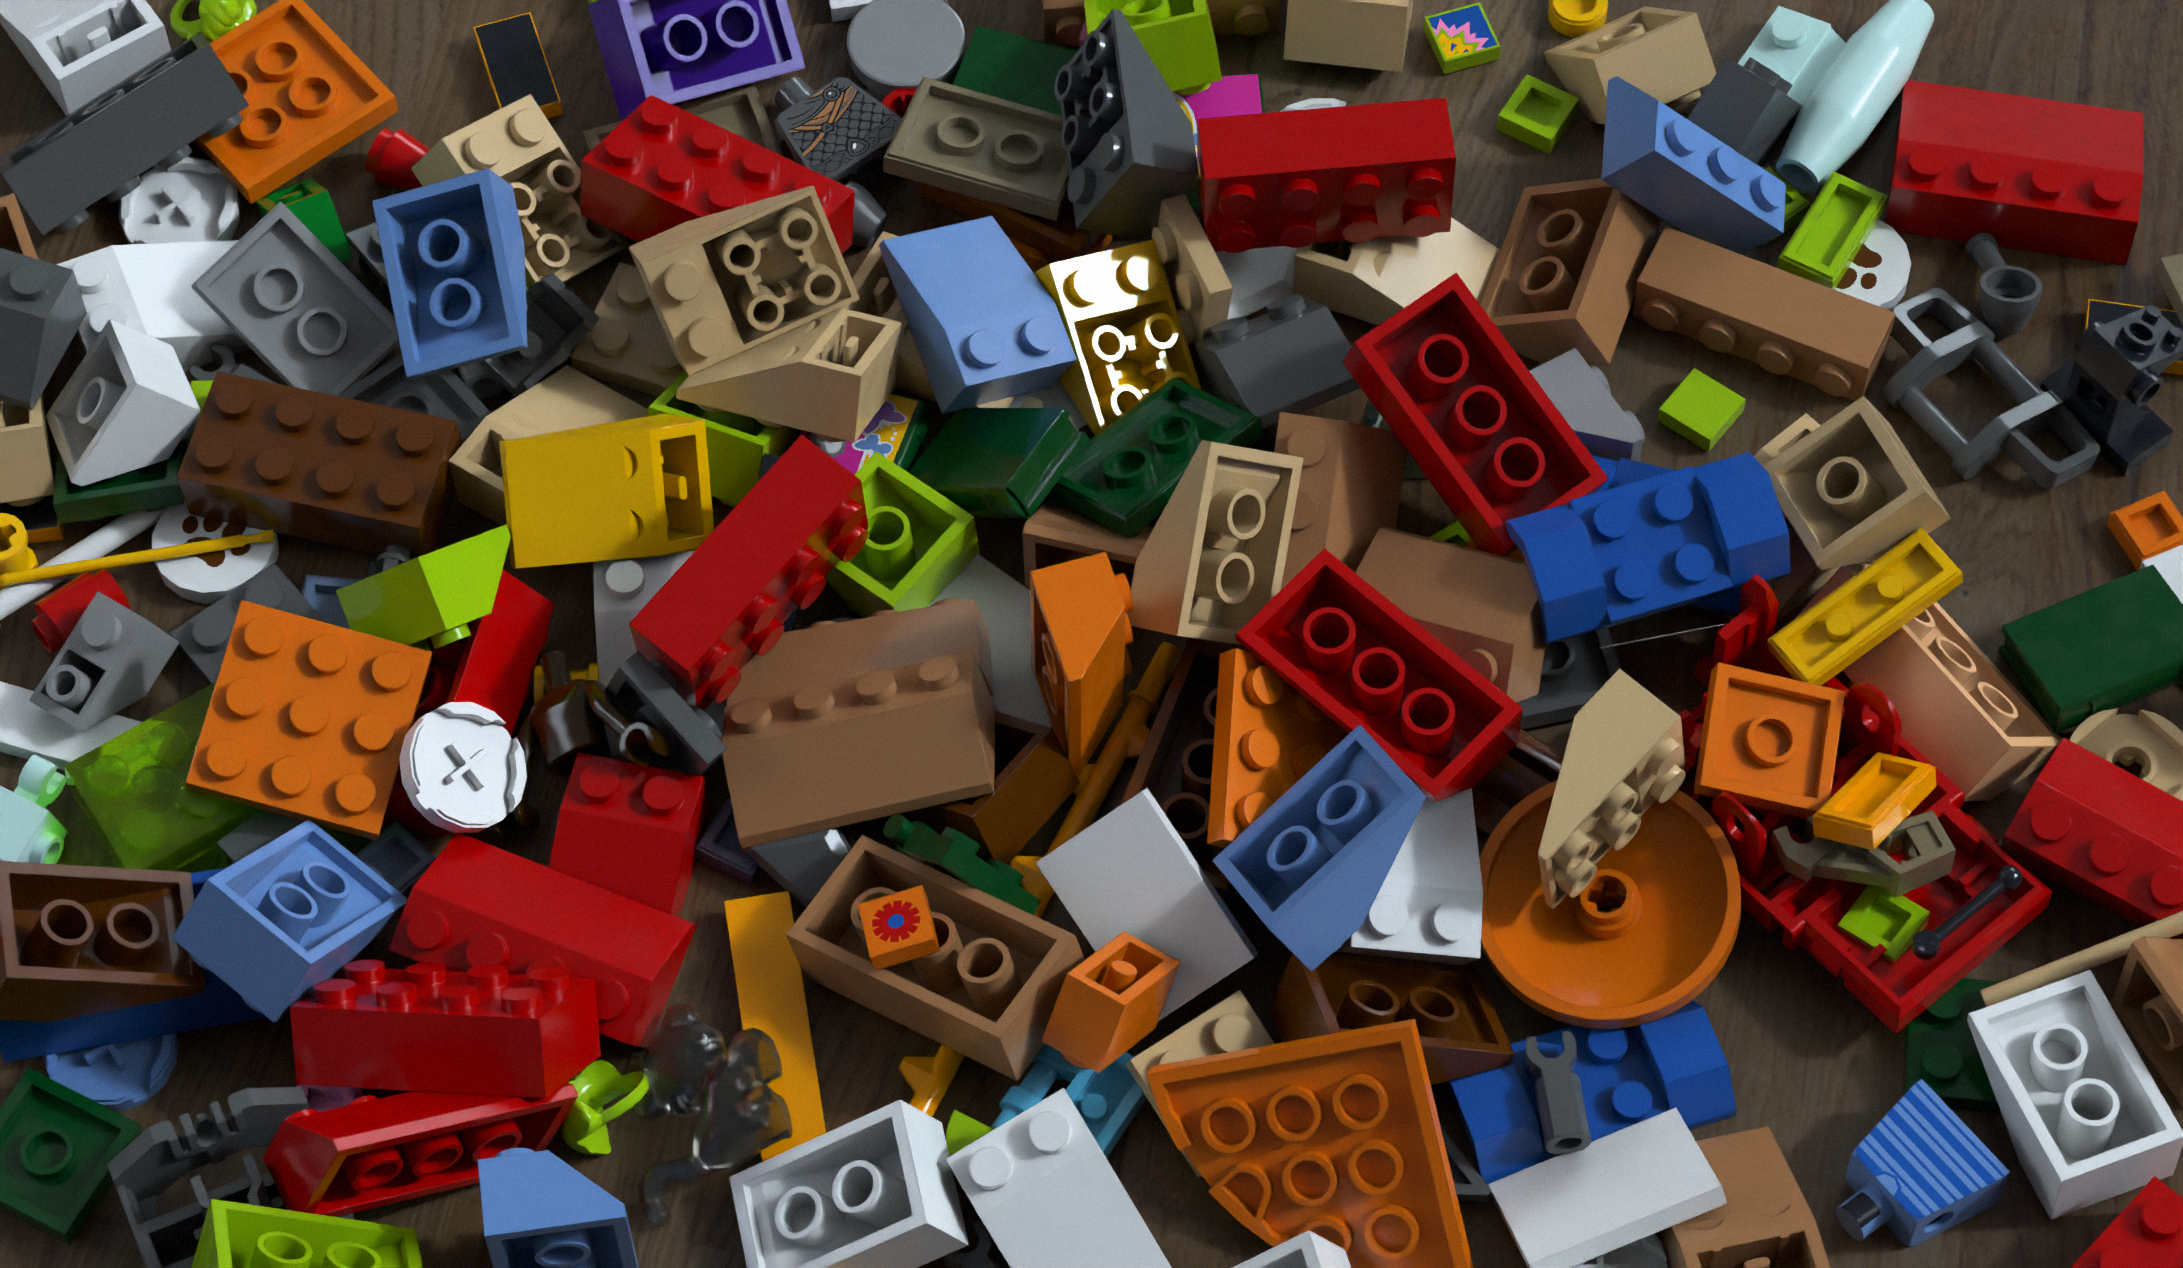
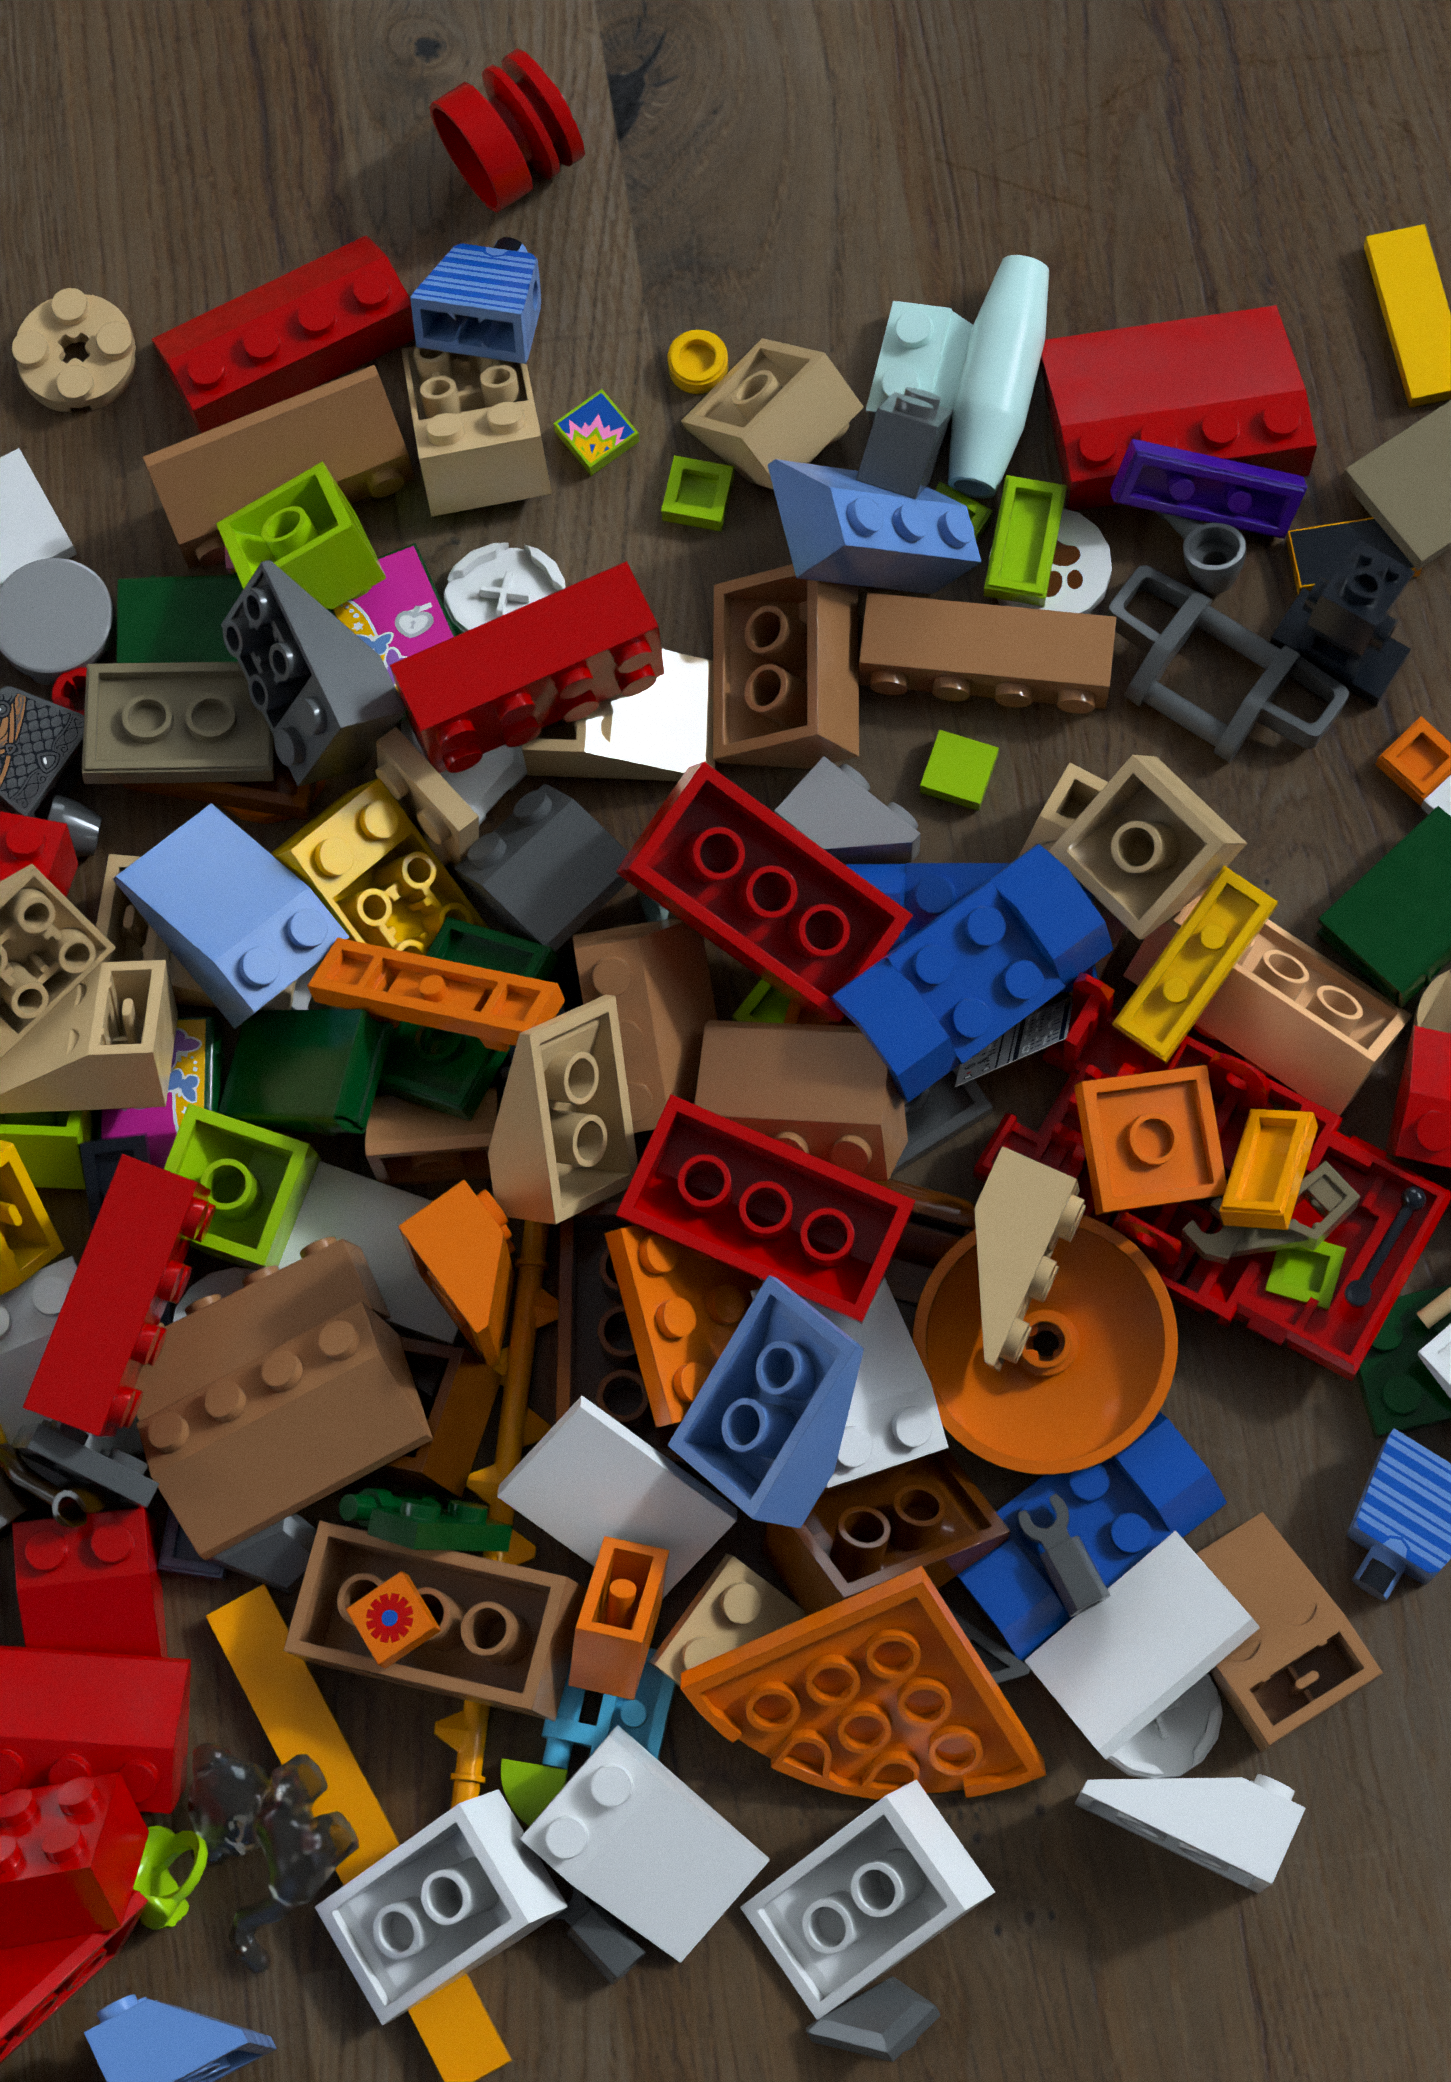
camera: 15 degrees left, 15 degrees up
(1118, 405) = (434, 992): none -> orange hinge
(2021, 232) = (1208, 488): none -> dark purple tile

